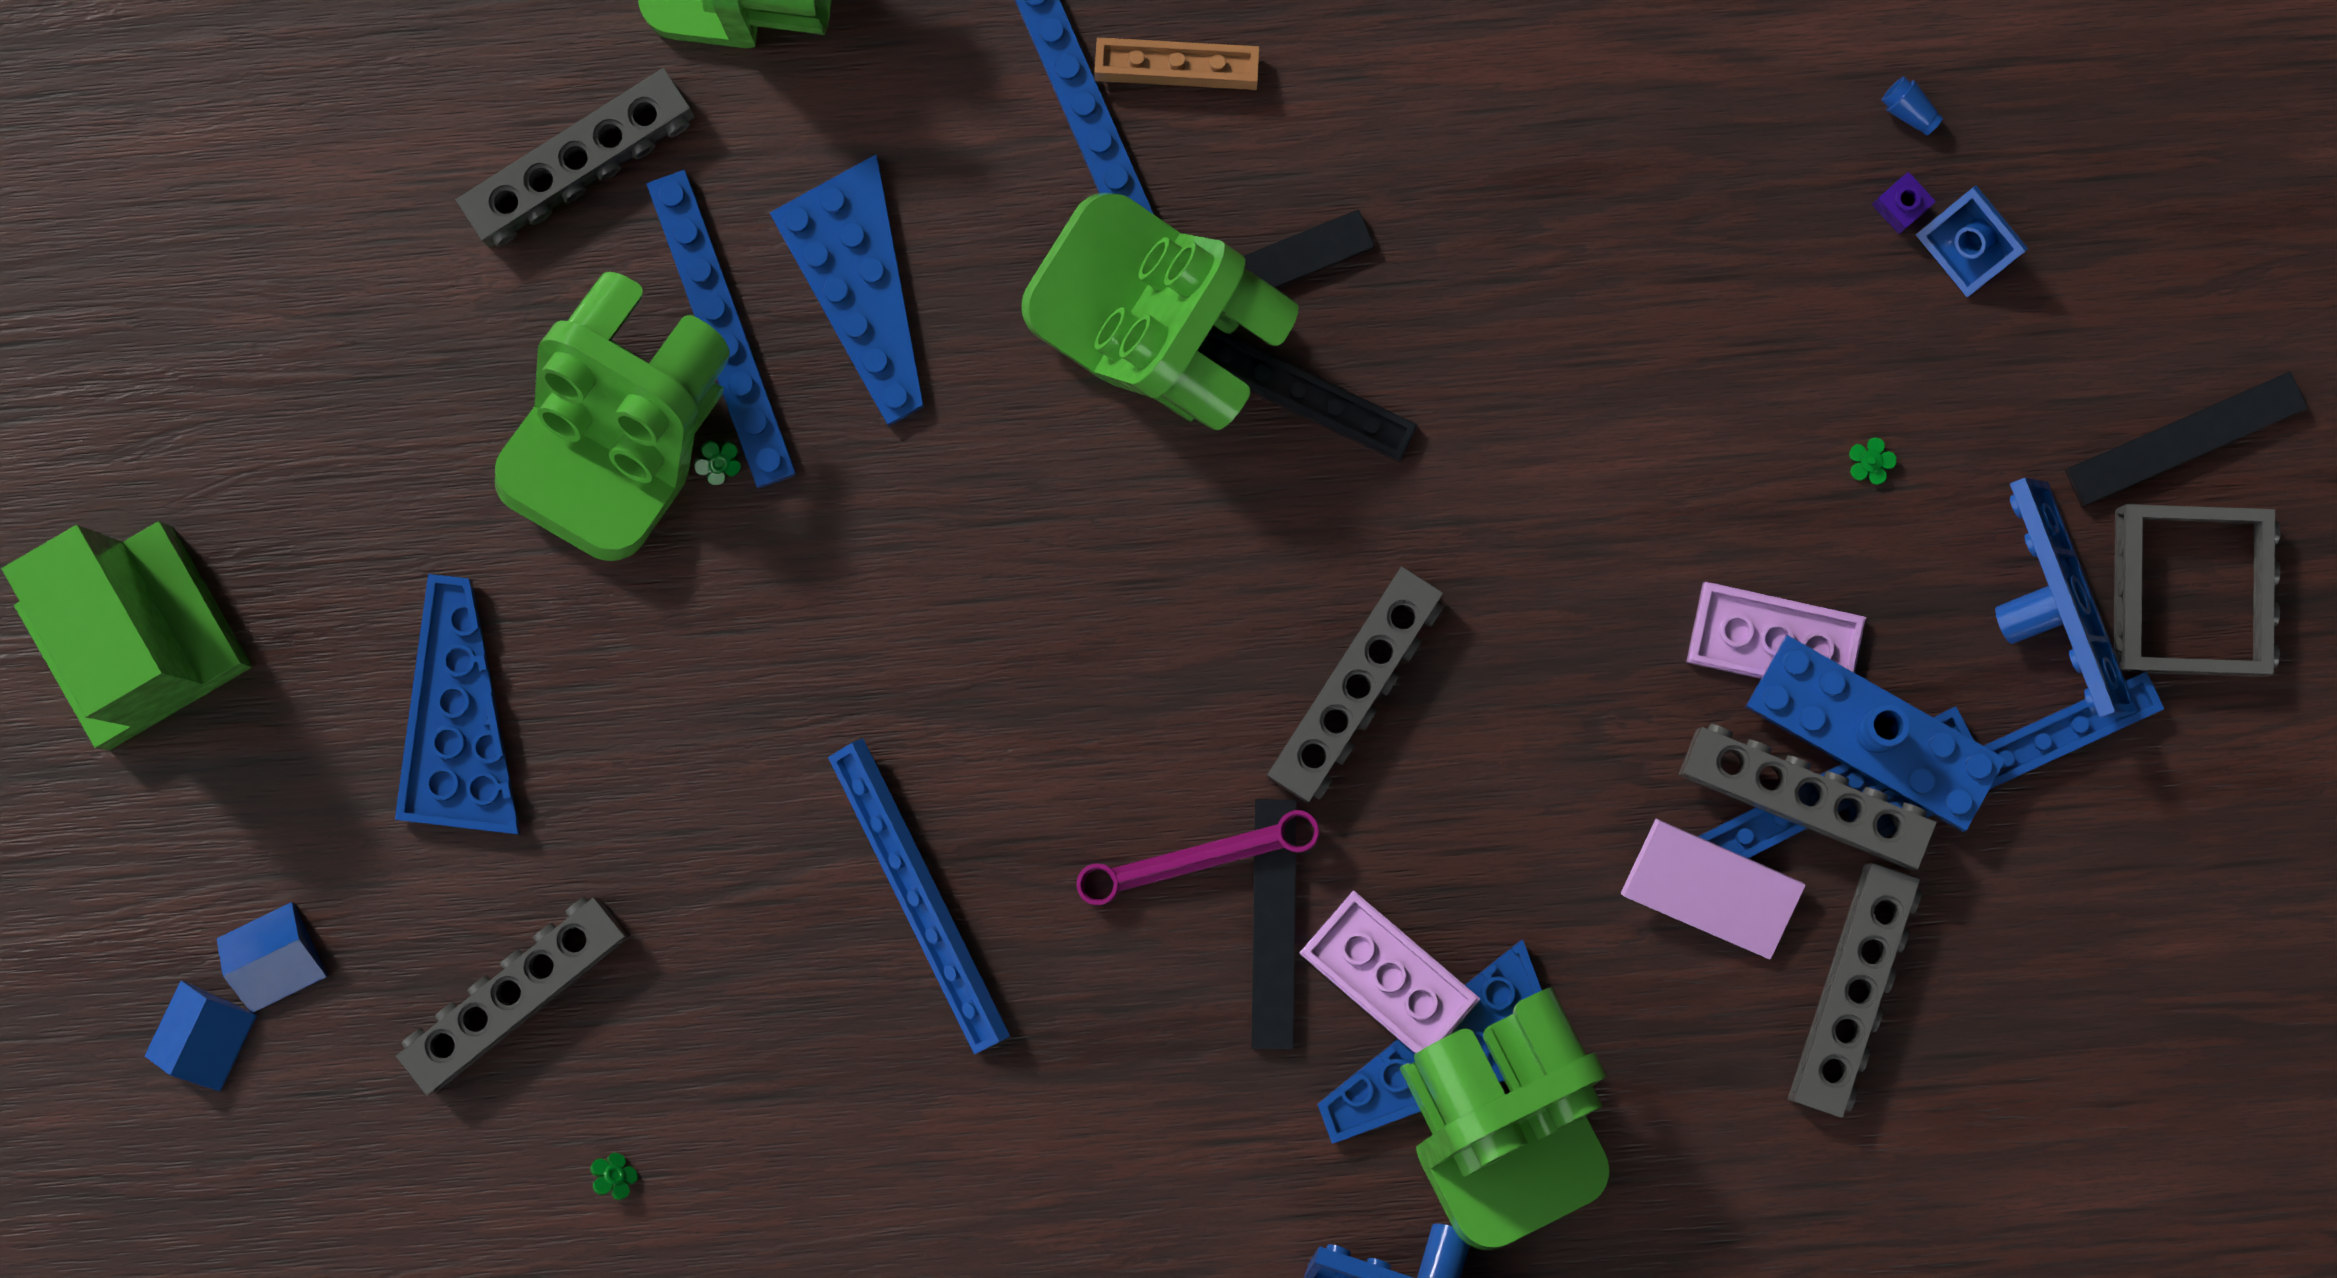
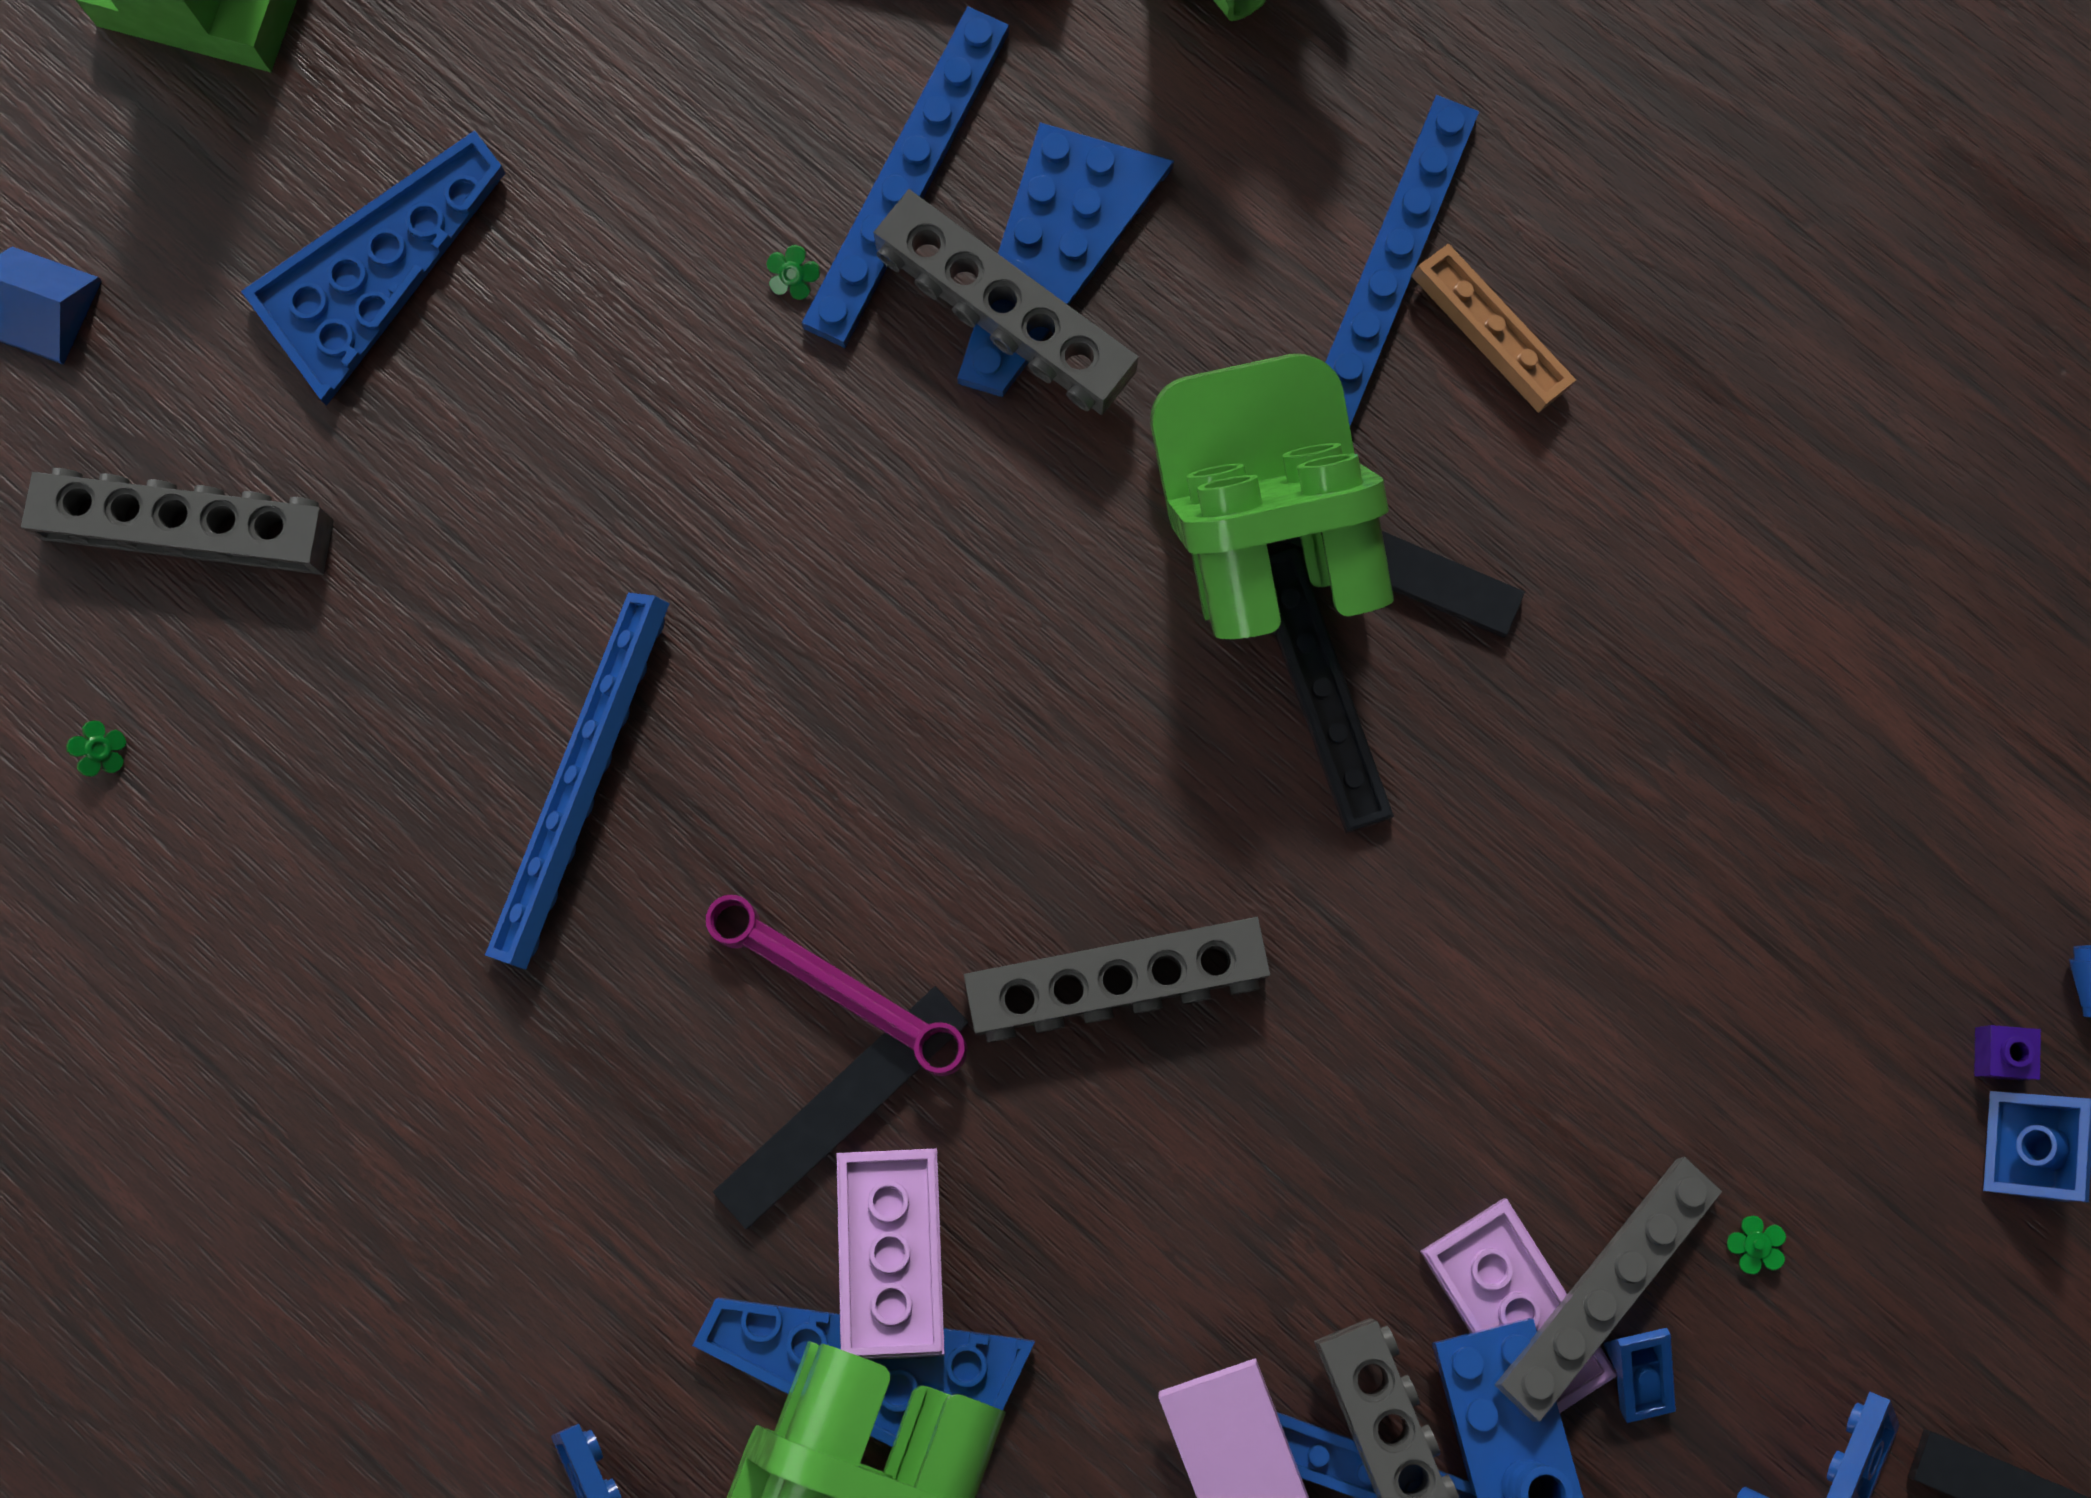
camera: 45 degrees right, 5 degrees down
(607, 428) = (738, 152): bright green piece -> none
(768, 354) = (918, 223): none -> dark grey brick
(1812, 573) = (1608, 1289): none -> dark grey plate
(1879, 602) = (1644, 1374): none -> blue slope

